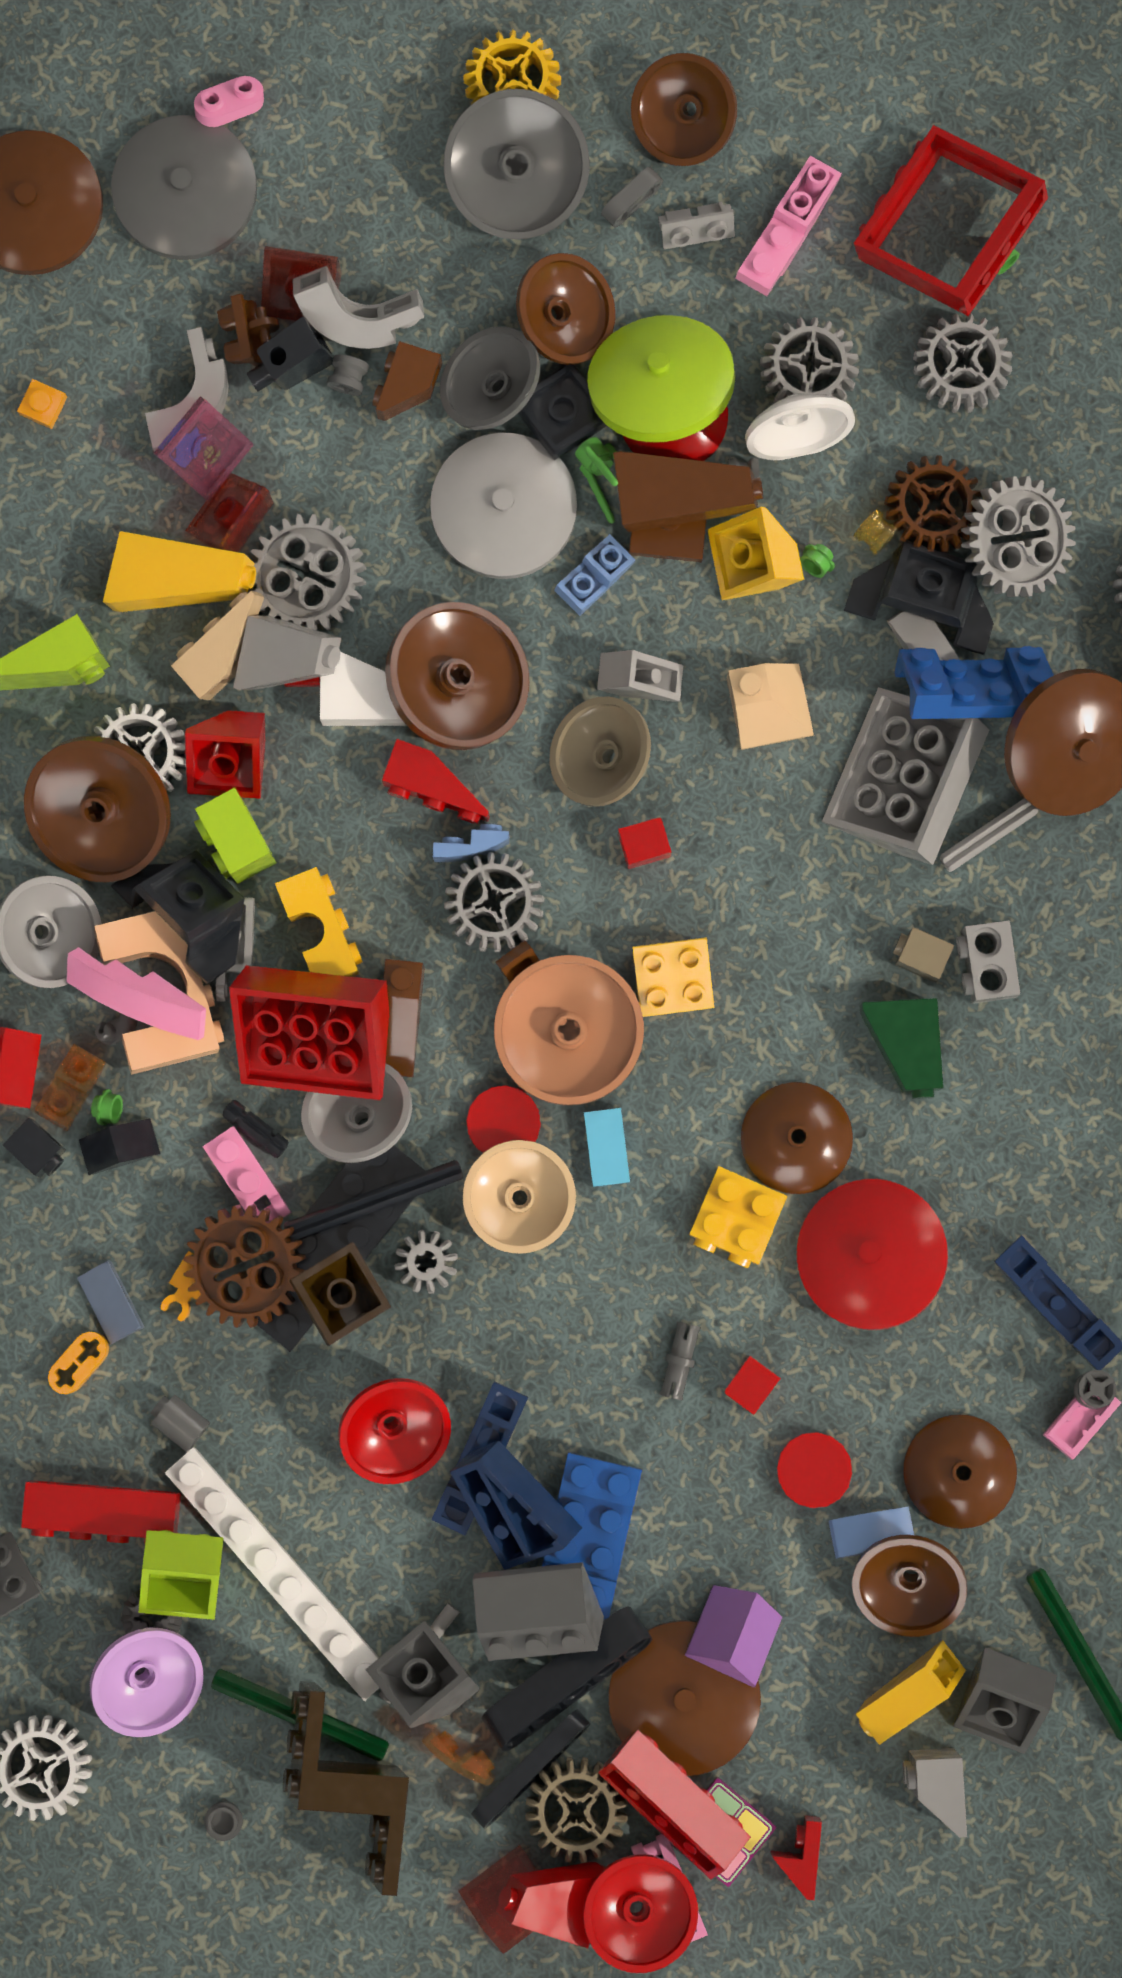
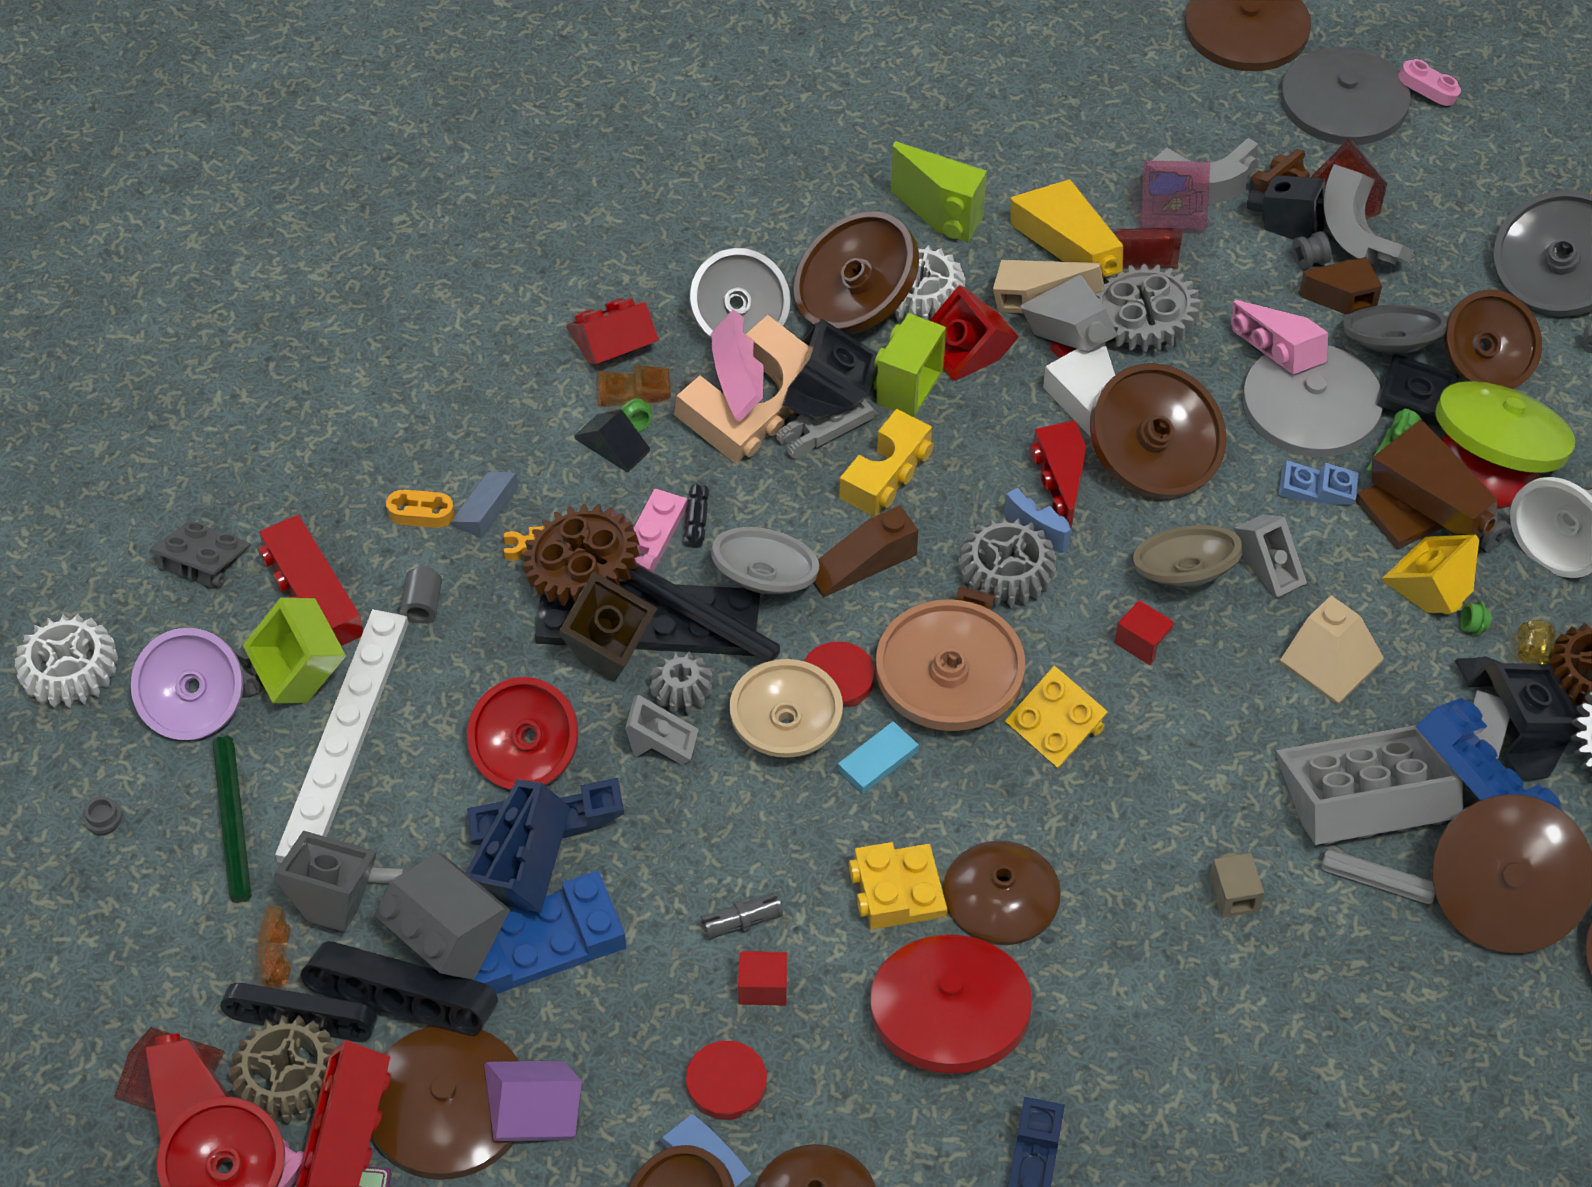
camera: 50 degrees right, 30 degrees down
(35, 1148) = (568, 386): black brick -> none
(42, 404) = (1117, 103): light orange plate -> none
(311, 1031) = (801, 490): red slope -> none
(347, 1788) = (178, 839): dark brown bracket -> none
(440, 484) = (1282, 336): none -> bright pink slope
(468, 1313) = (658, 729): none -> light grey slope
(909, 1042) = (1155, 918): dark green slope -> none
(999, 962) = (1281, 943): light grey brick -> none

